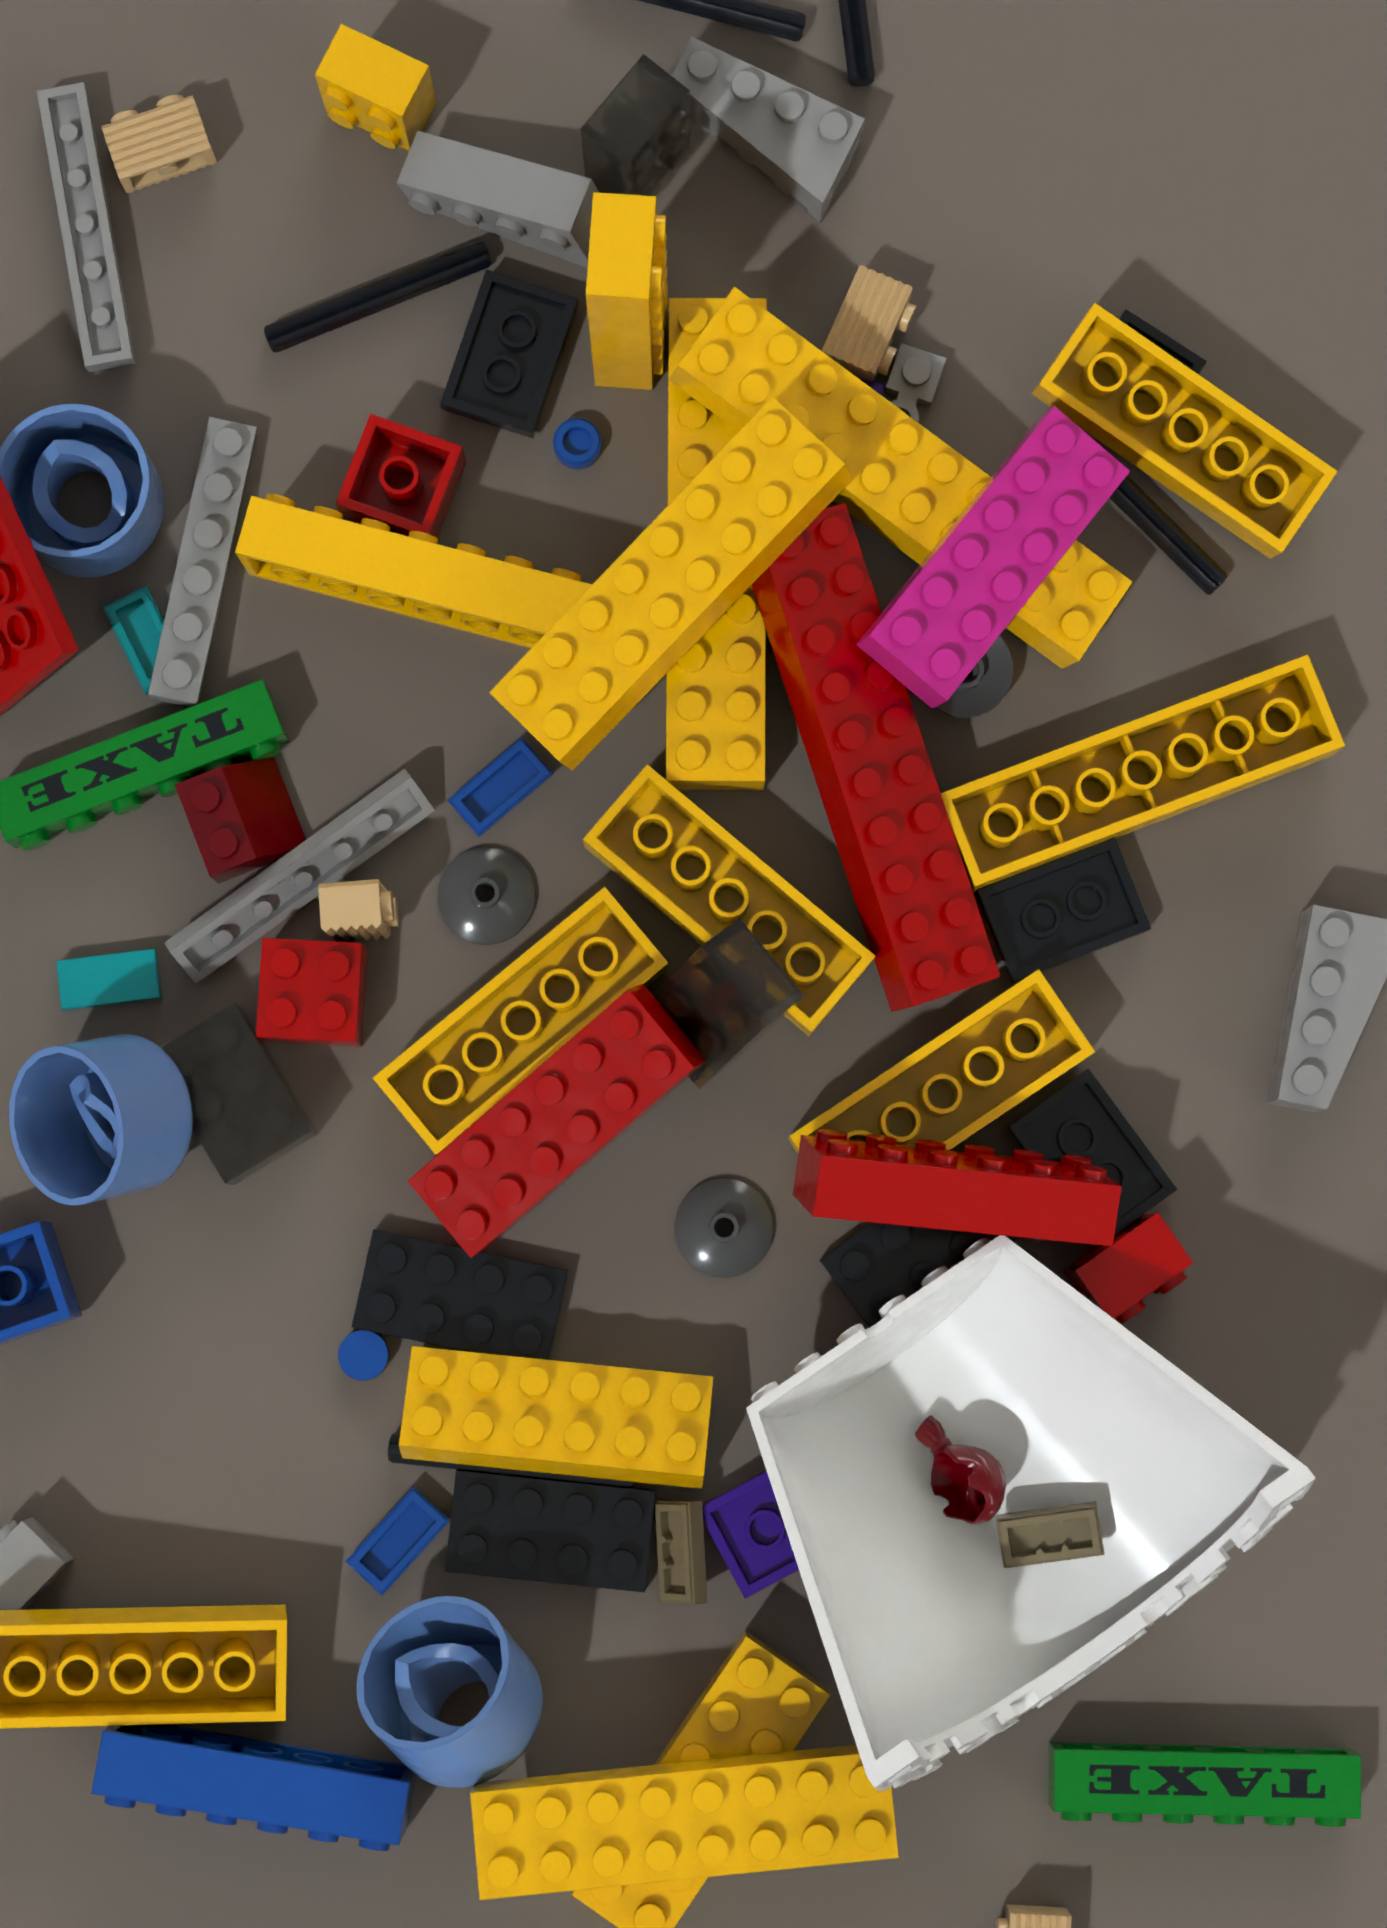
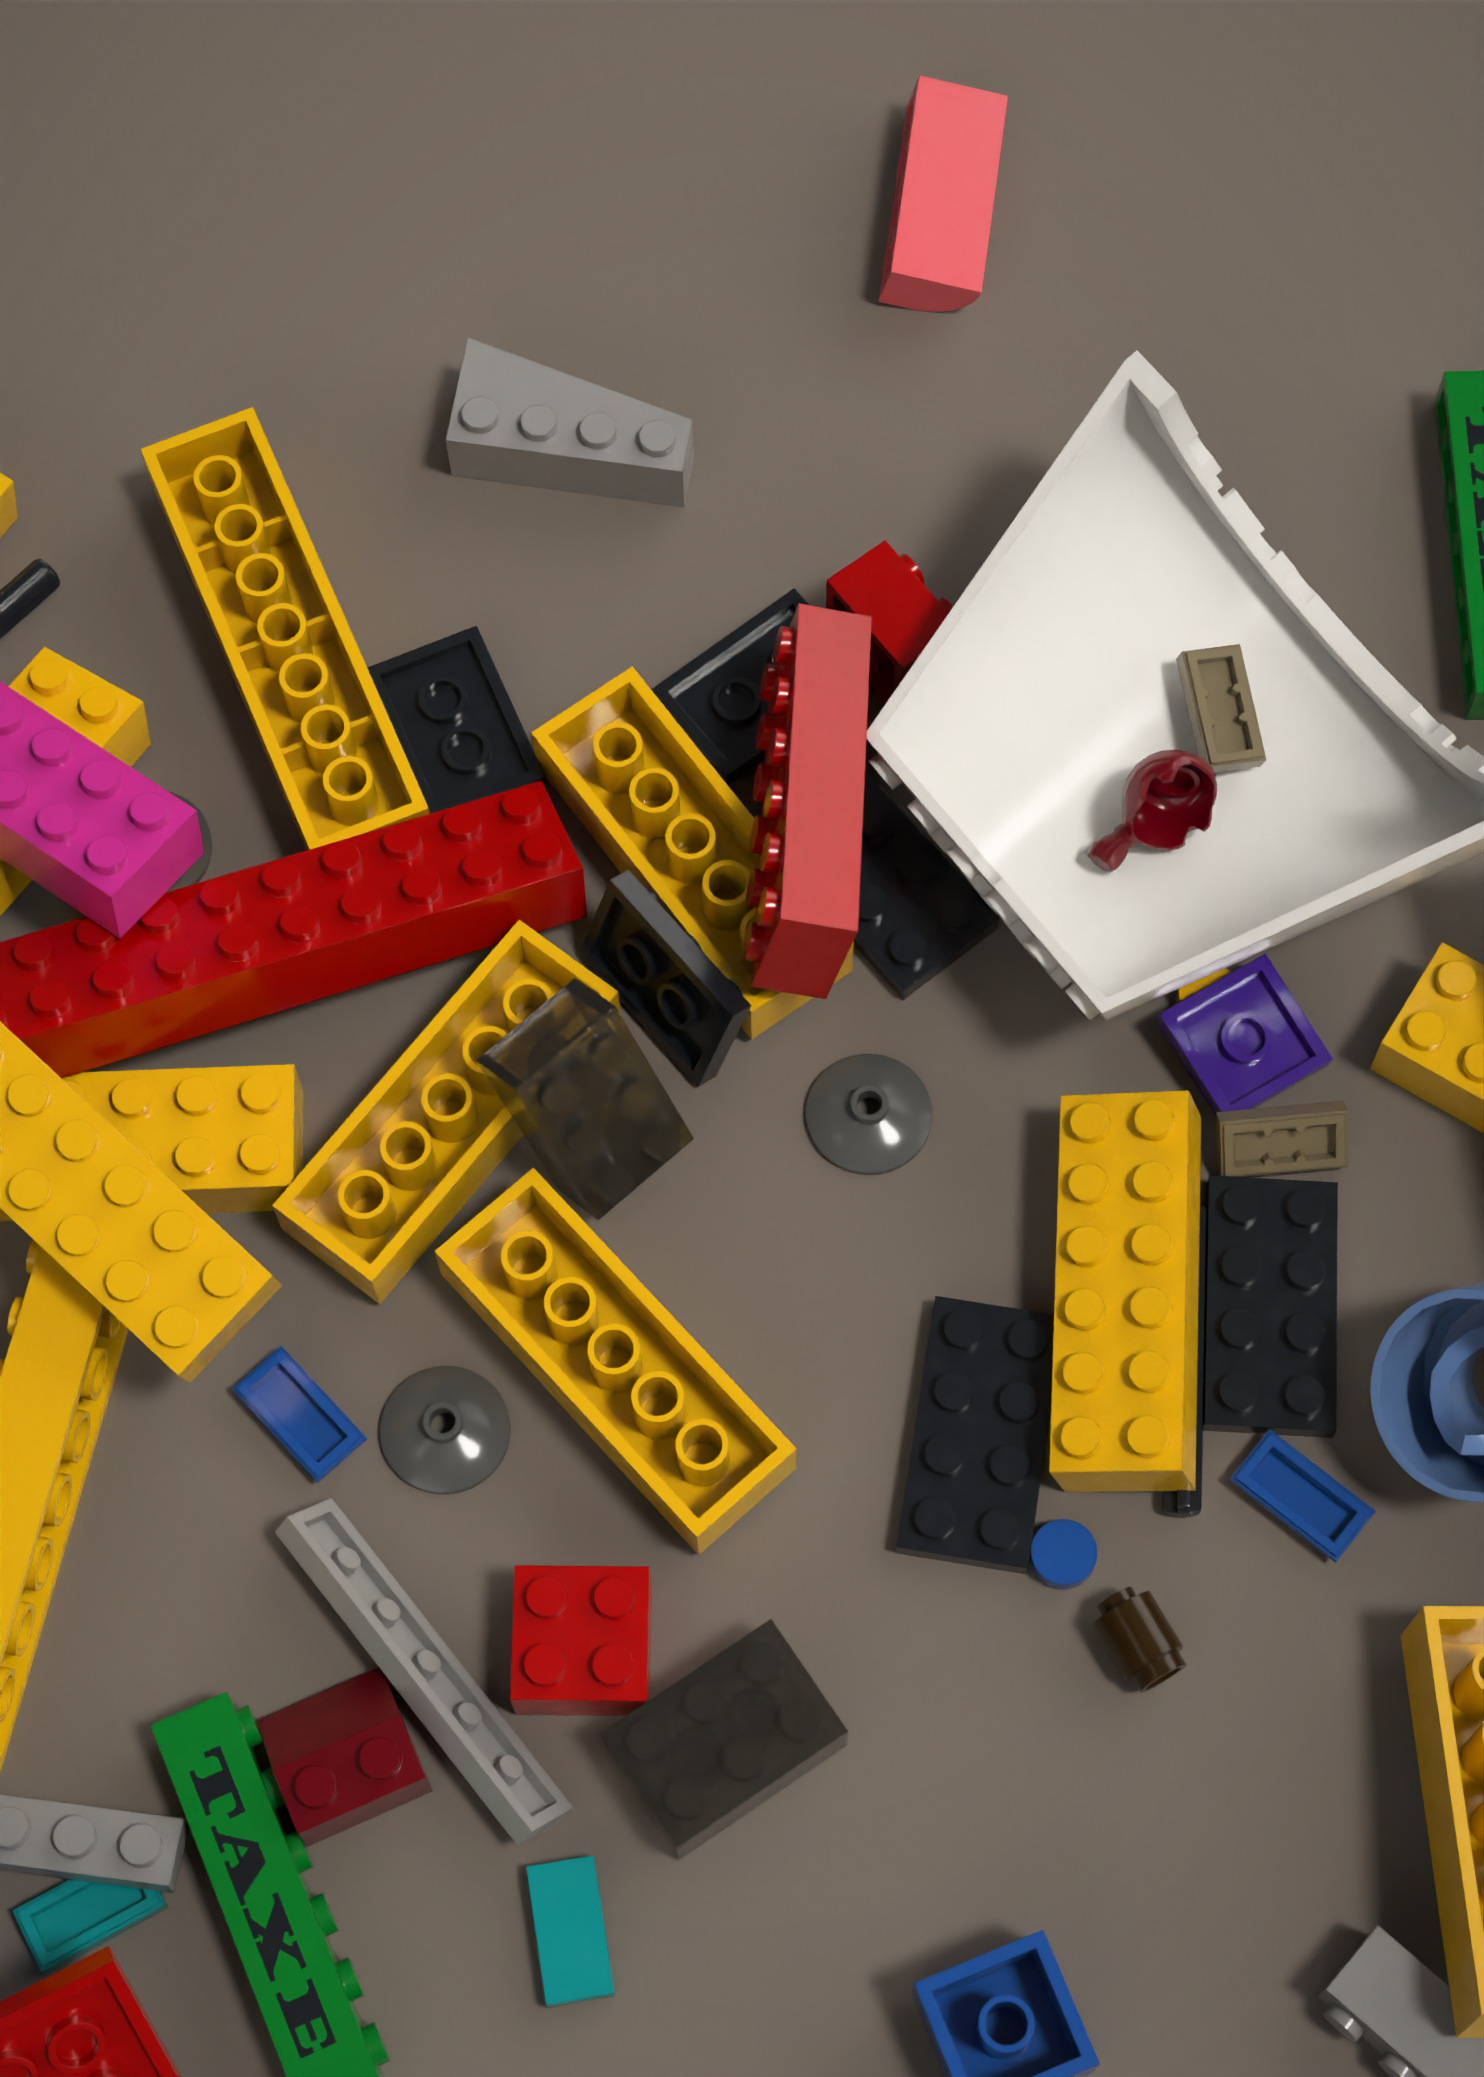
camera: 90 degrees left, 15 degrees down
(100, 1118) = (782, 1959): medium blue piece -> none
(292, 1406) = (1139, 1638): none -> dark brown brick
(357, 910) = (470, 1577): tan brick -> none
(557, 1120) = (746, 1294): red brick -> none
(829, 1070) = (664, 978): none -> black plate

